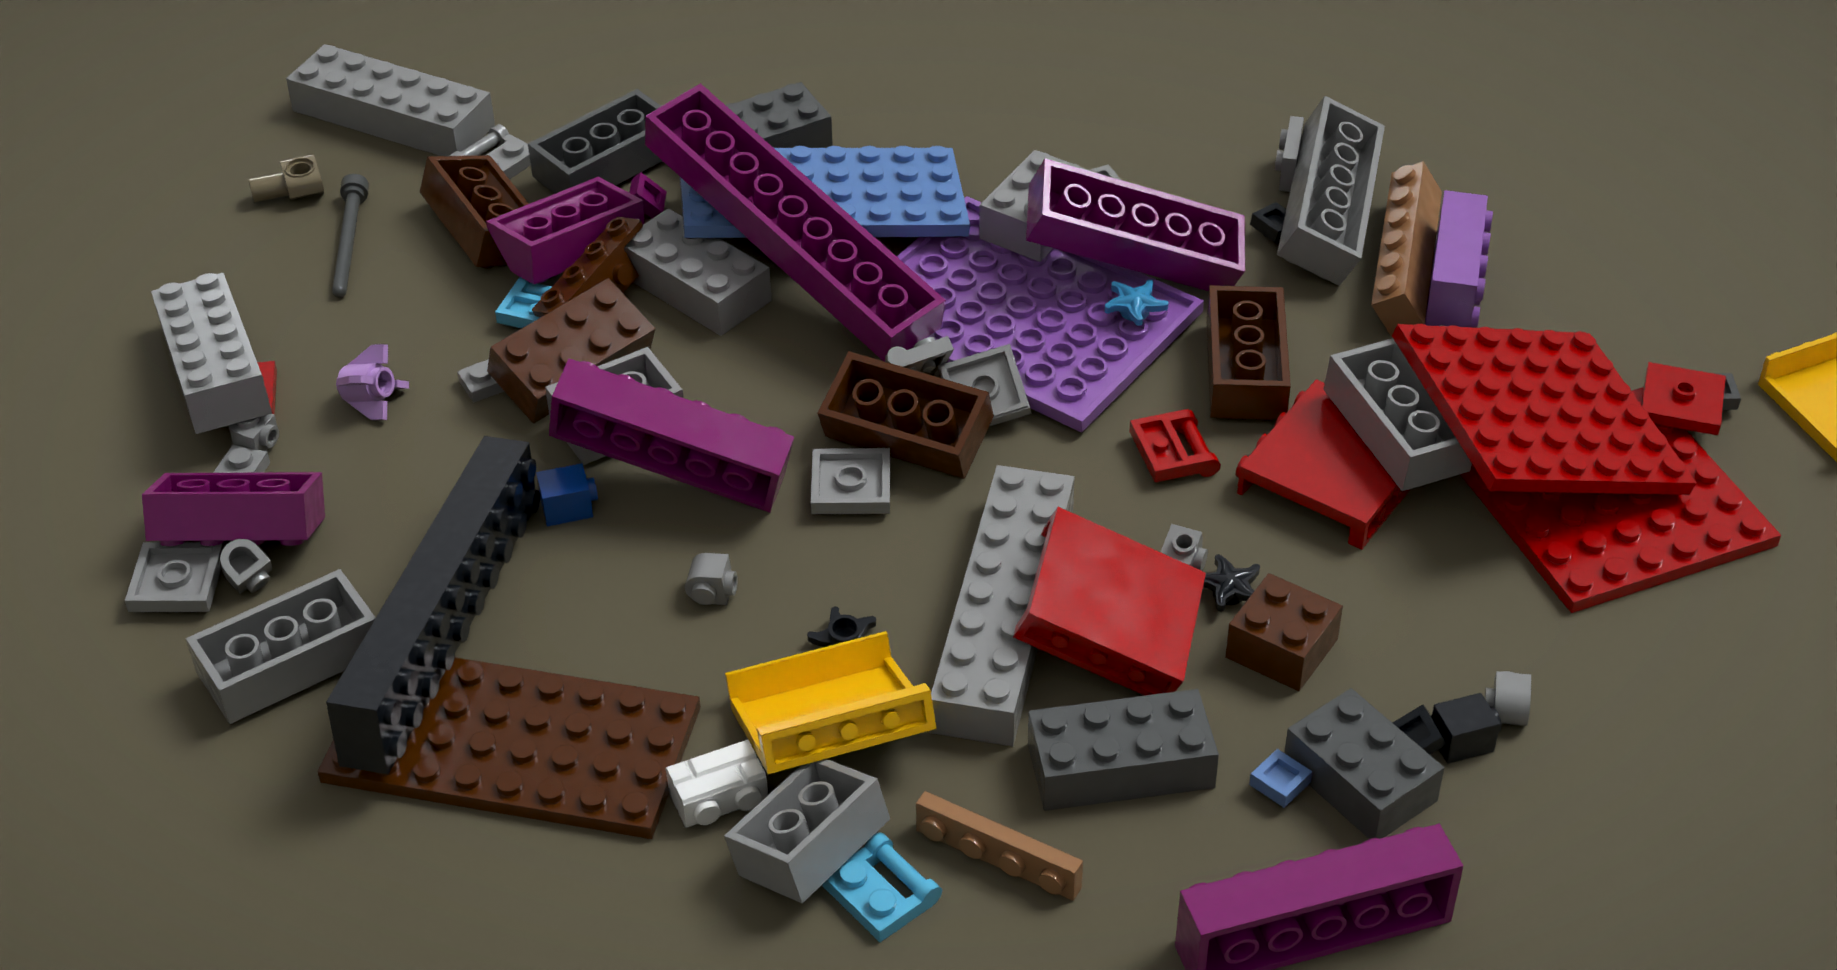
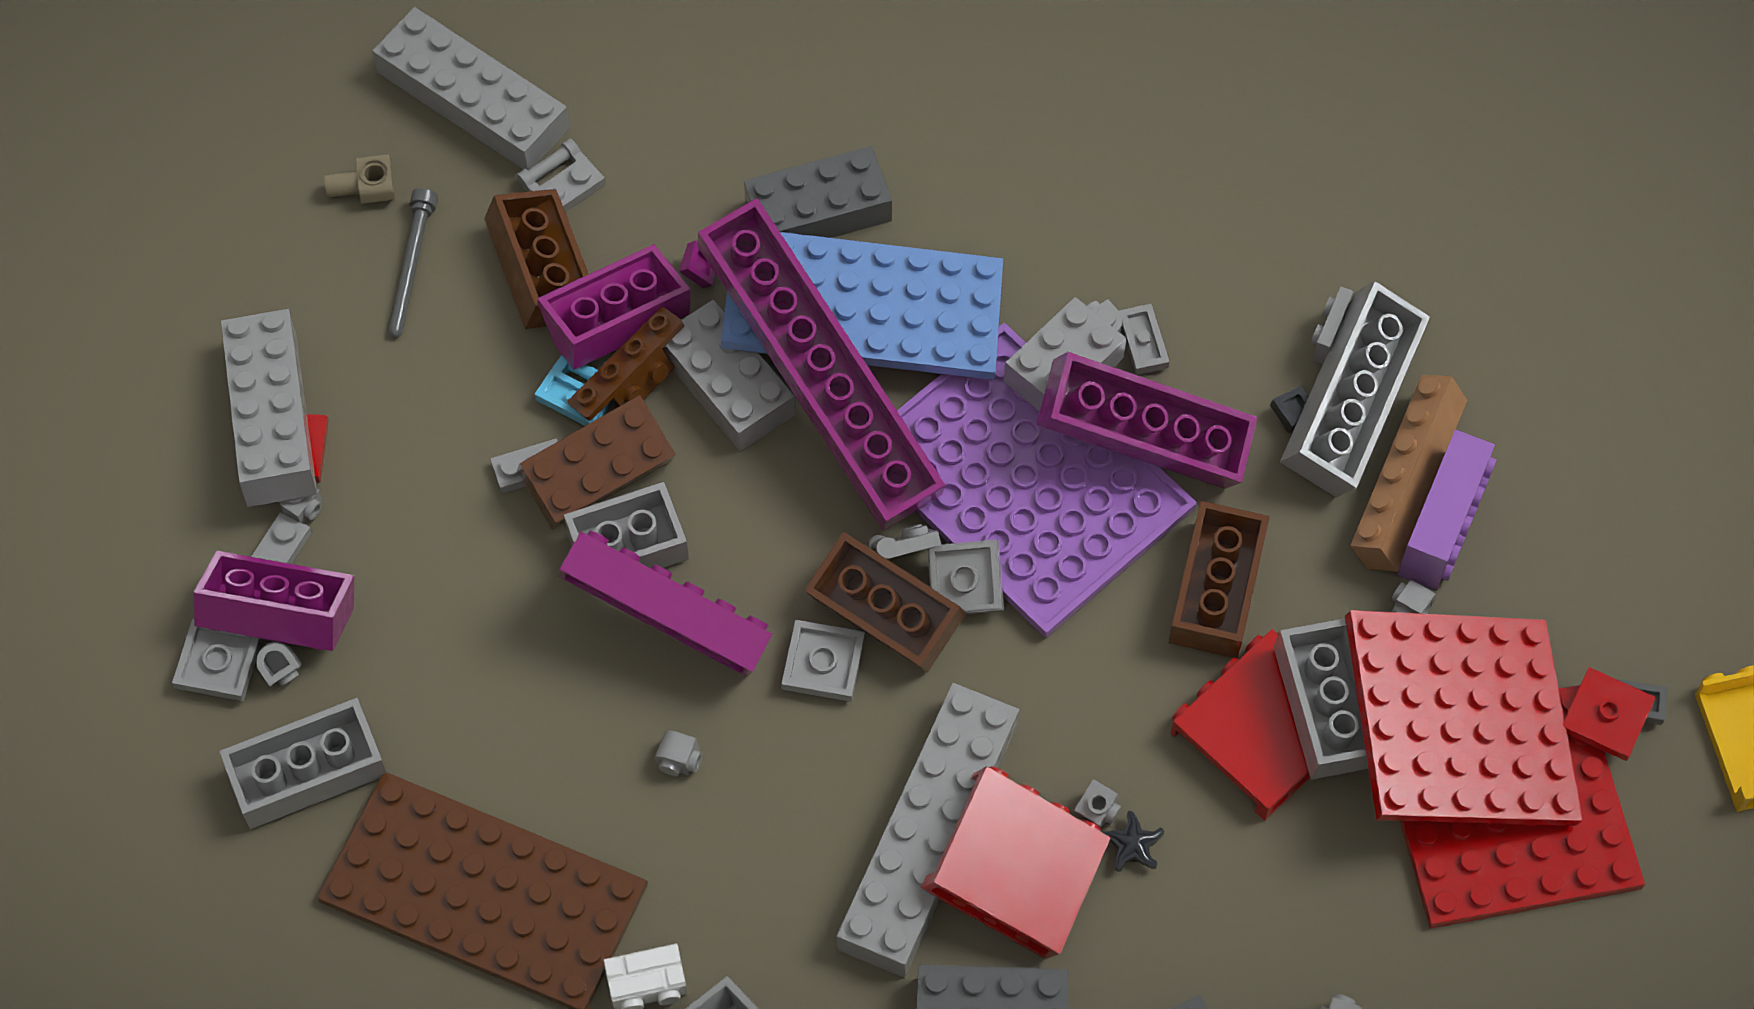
camera: 10 degrees right, 20 degrees up
(367, 382) = (408, 464): lavender brick -> none
(432, 607) = (435, 751): black brick -> none
(566, 494) = (567, 630): blue brick -> none
(599, 144) = (668, 195): dark grey brick -> none
(827, 703) = (751, 921): yellow panel -> none
(841, 629) = (784, 836): black animal -> none
(1134, 302) = (1129, 499): dark azure animal -> none
(1163, 450) = (1113, 673): red plate -> none
(1283, 631) = (1164, 910): reddish brown brick -> none

